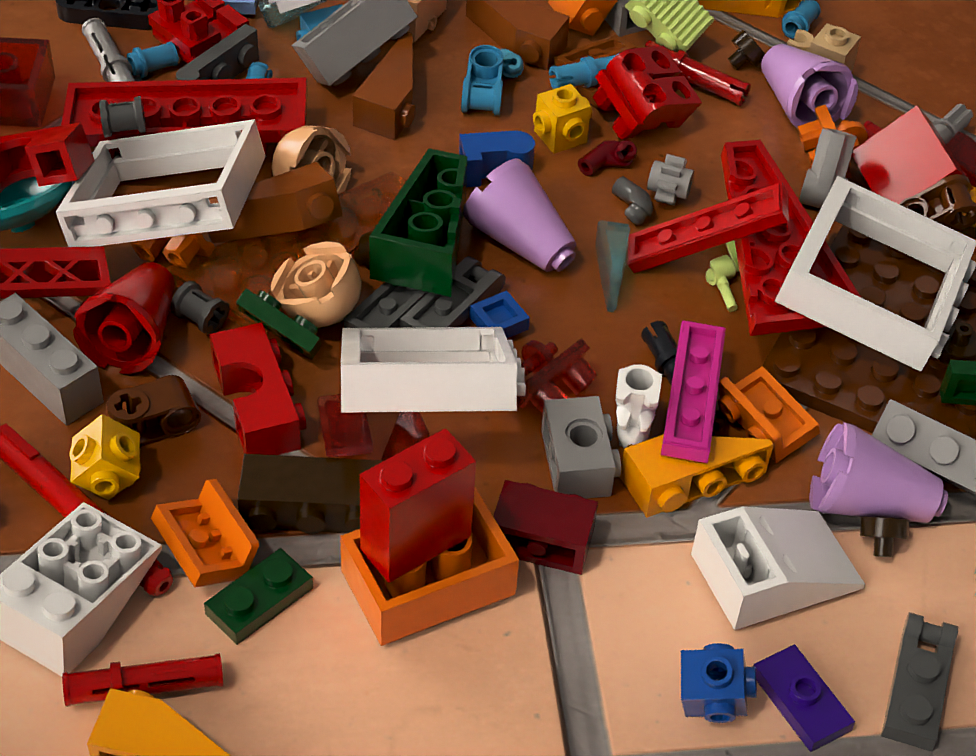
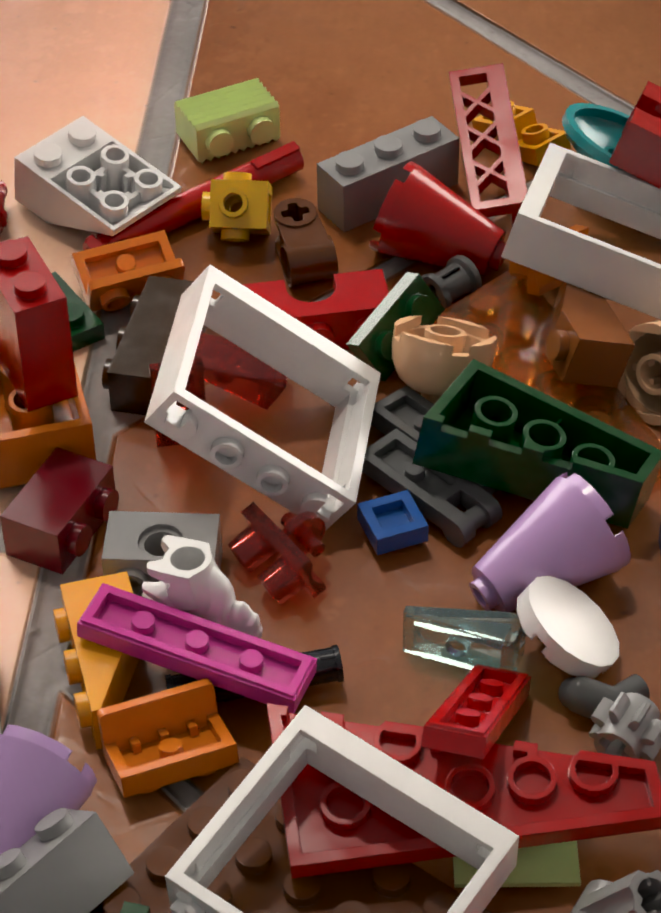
camera: 105 degrees right, 5 degrees down
(596, 206) = (569, 625): none -> white tile

